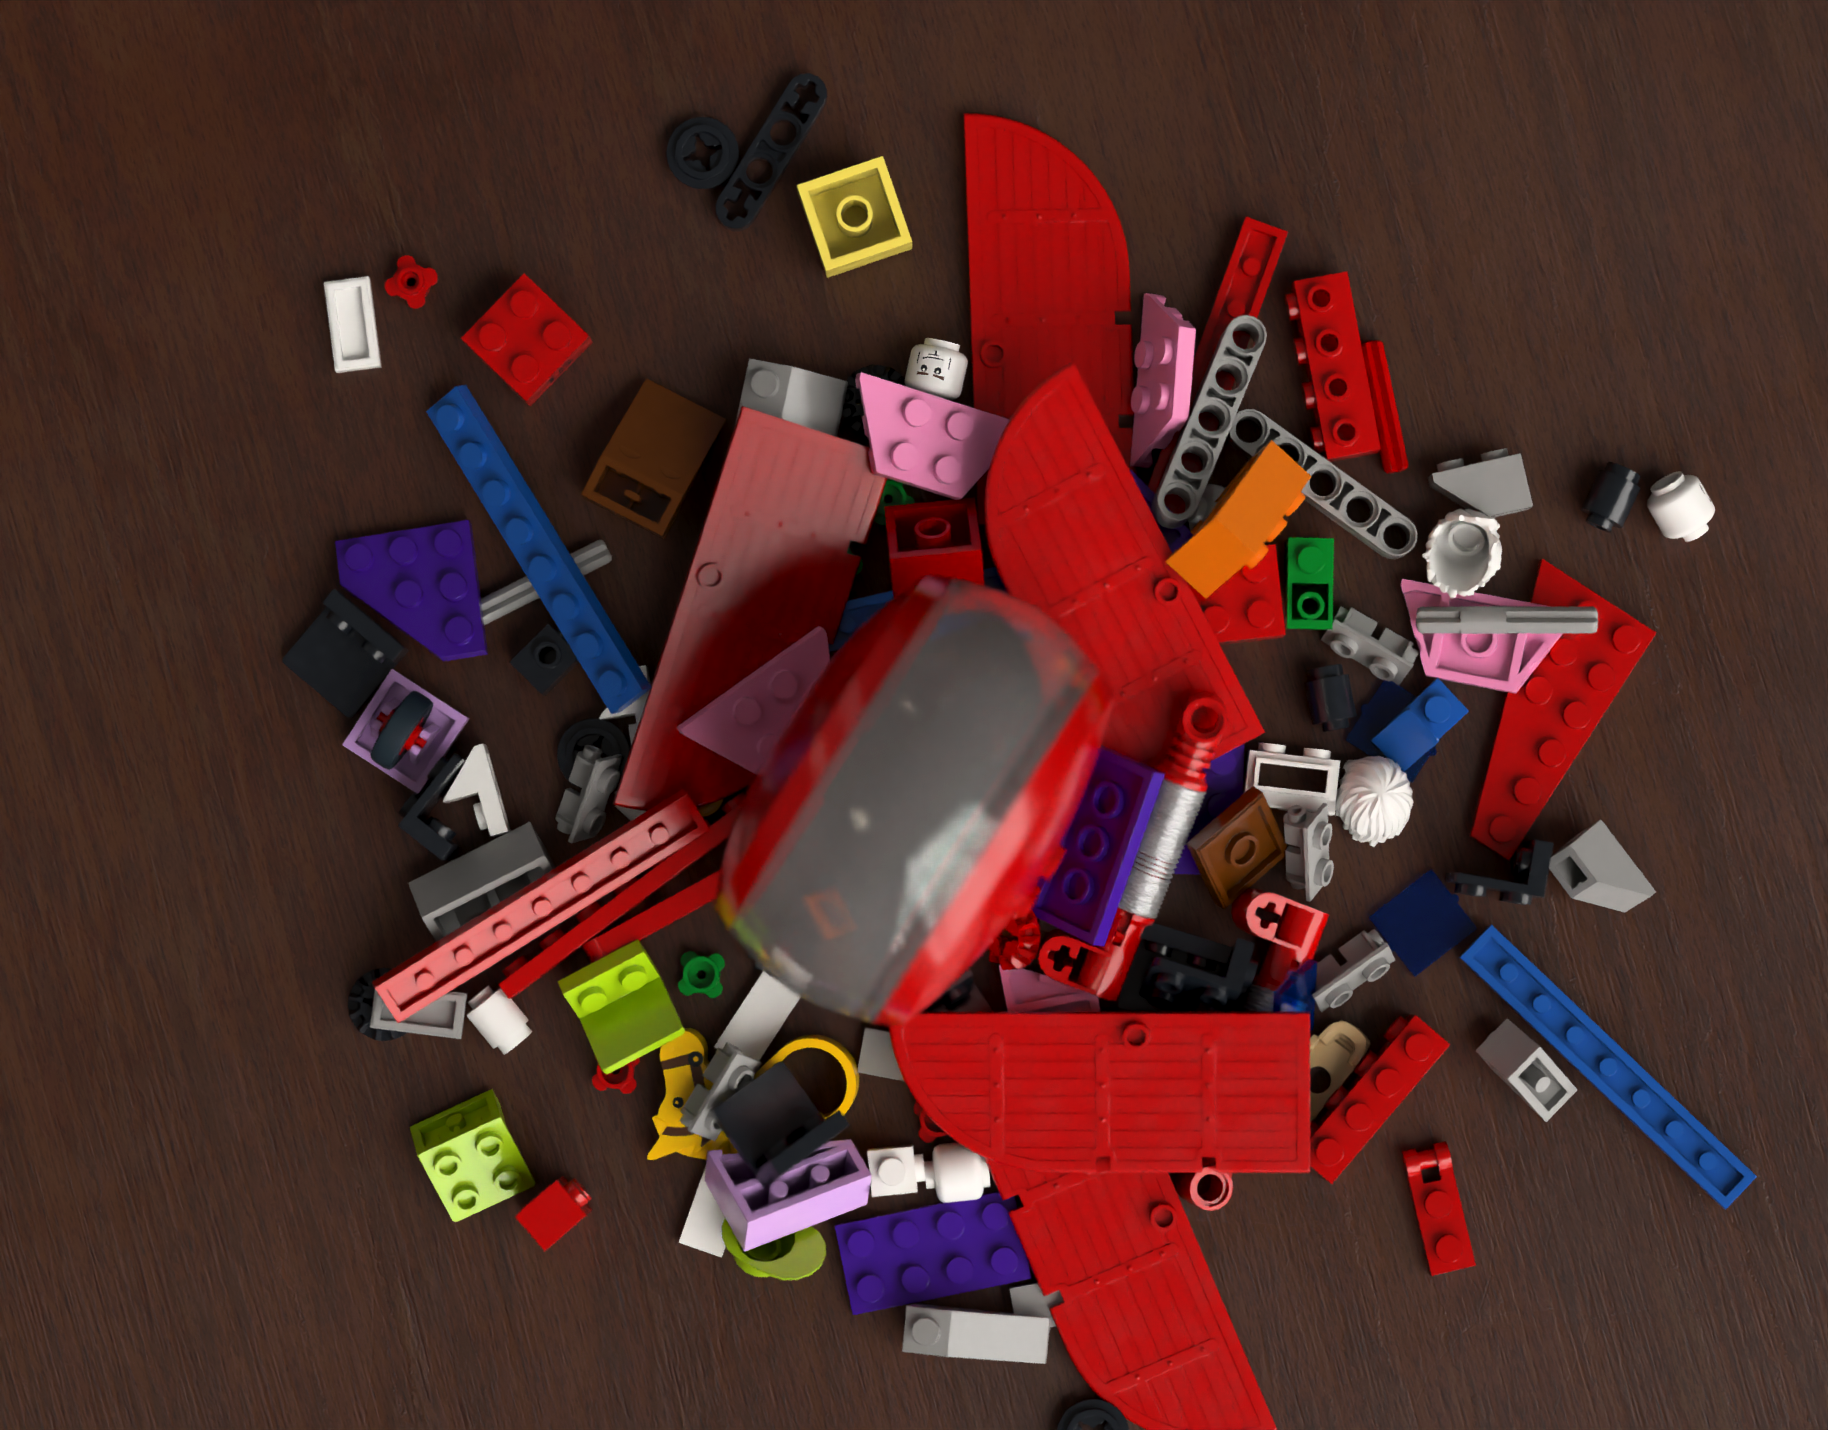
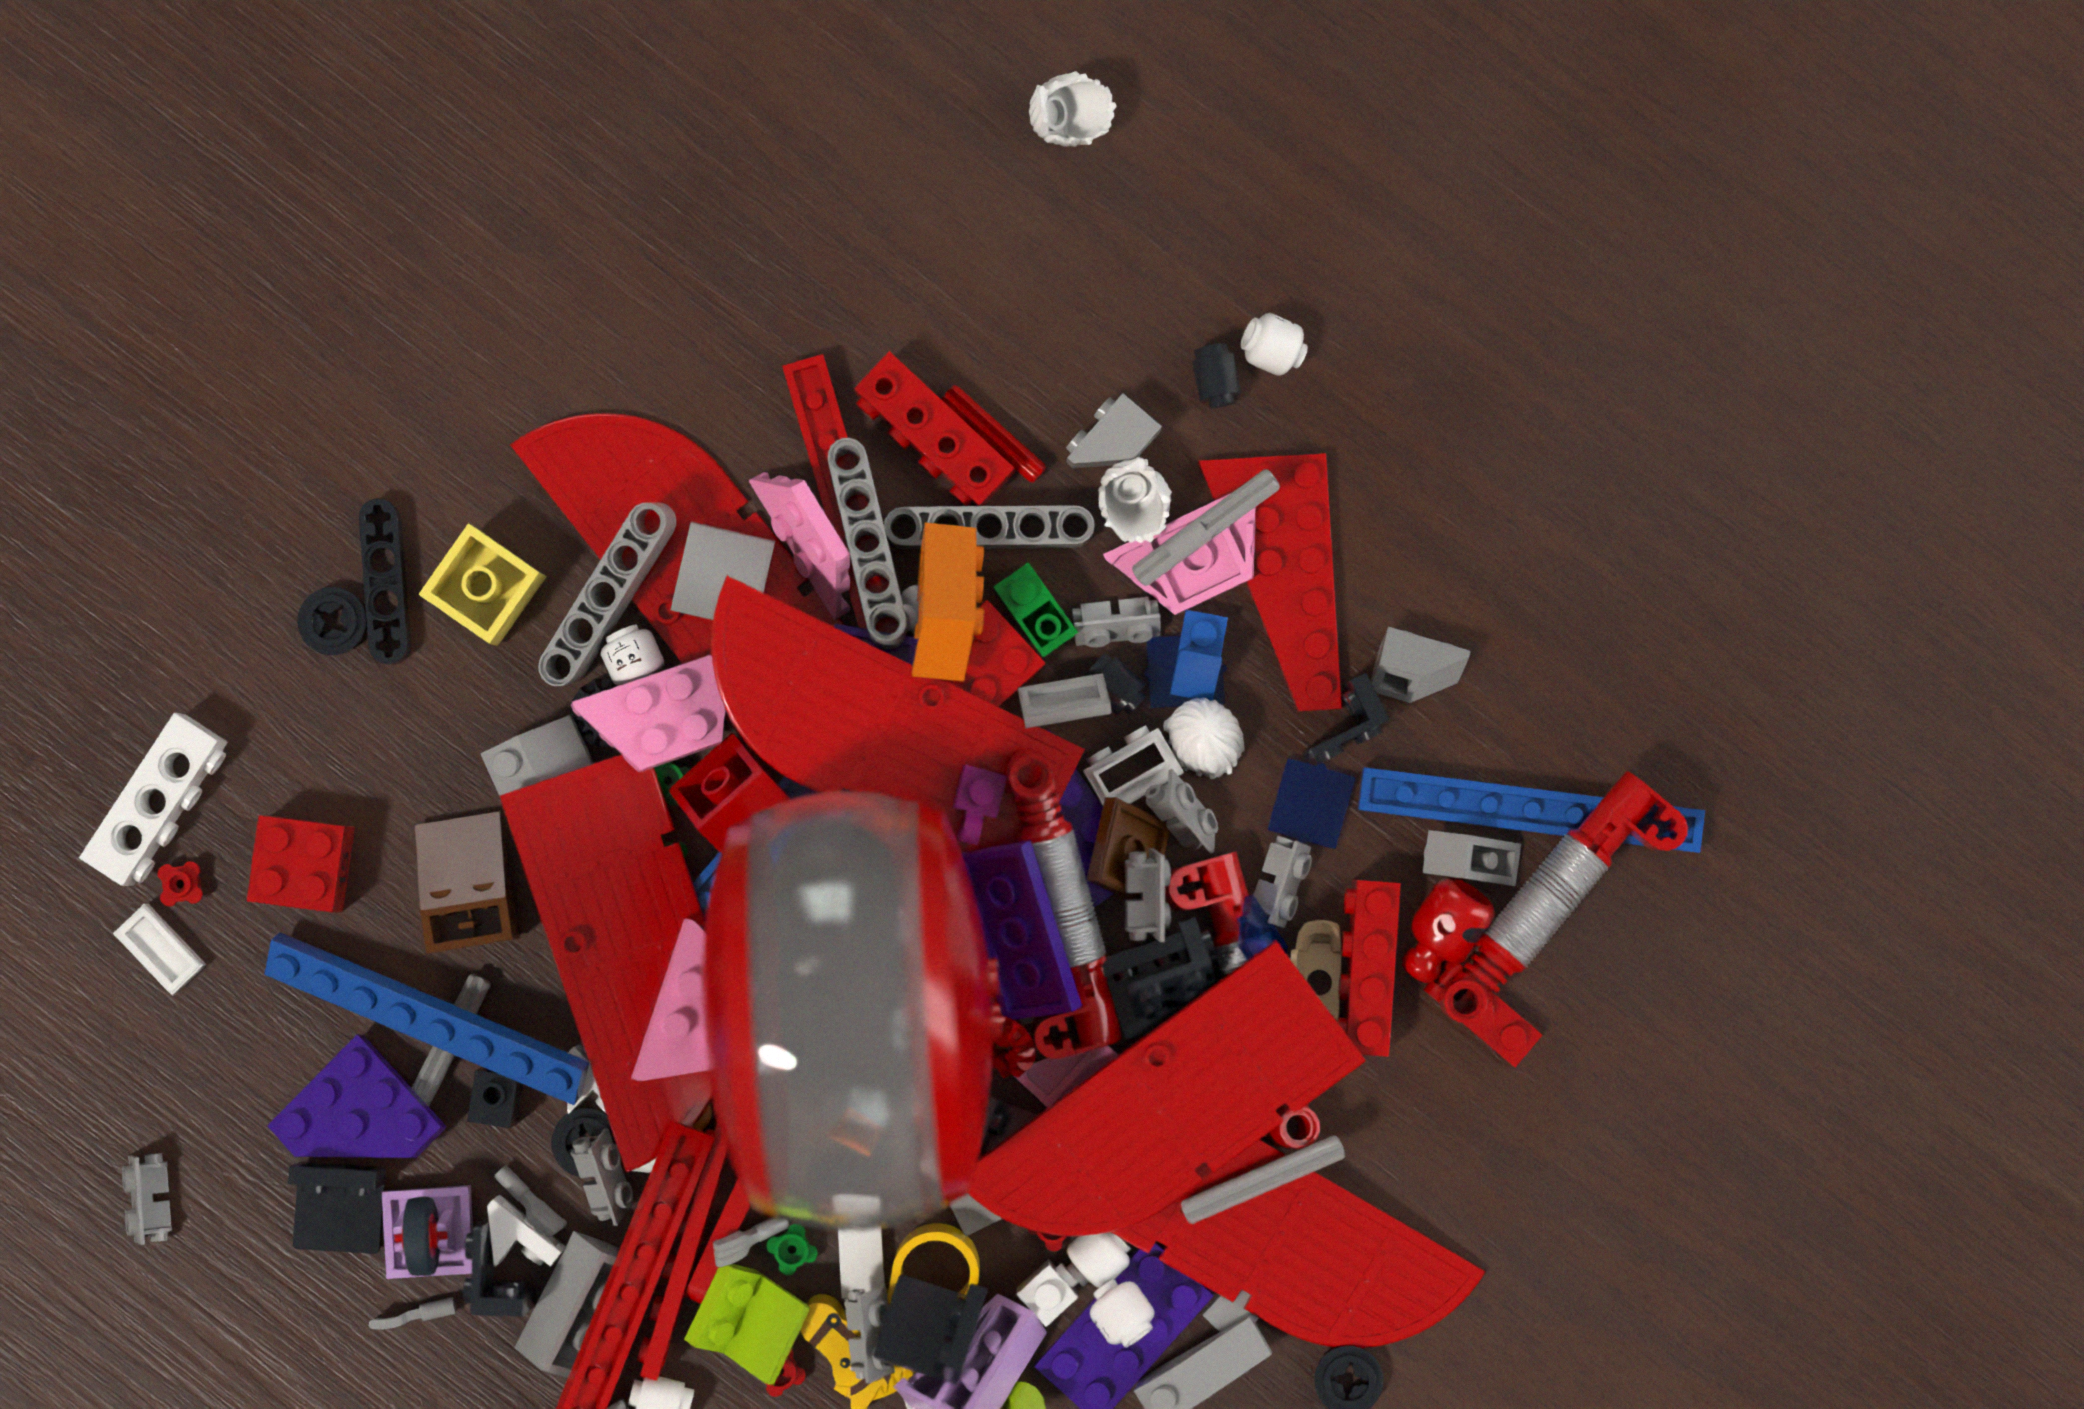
camera: 40 degrees left, 0 degrees up
(194, 512) = (142, 1182): none -> light grey hinge
(353, 797) = (425, 1311): none -> light grey piece
(373, 206) = (108, 846): none -> white brick
(509, 782) = (537, 1211): none -> light grey piece
(660, 935) = (737, 1245): none -> light grey piece
(933, 299) = (589, 603): none -> light grey beam
(944, 1233) = (1122, 1313): none -> white head
(1062, 337) = (709, 558): none -> light grey slope
(1146, 704) = (978, 795): none -> magenta plate
(1148, 1208) = (1263, 1179): none -> light grey axle
(1240, 883) = (1151, 911): none -> light grey hinge
(1278, 678) = (1064, 700): none -> light grey tile
(1462, 1113) = (1447, 928): none -> red piece
(1583, 1148) = (1559, 889): none -> piece
(1655, 179) = (1071, 110): none -> white hair

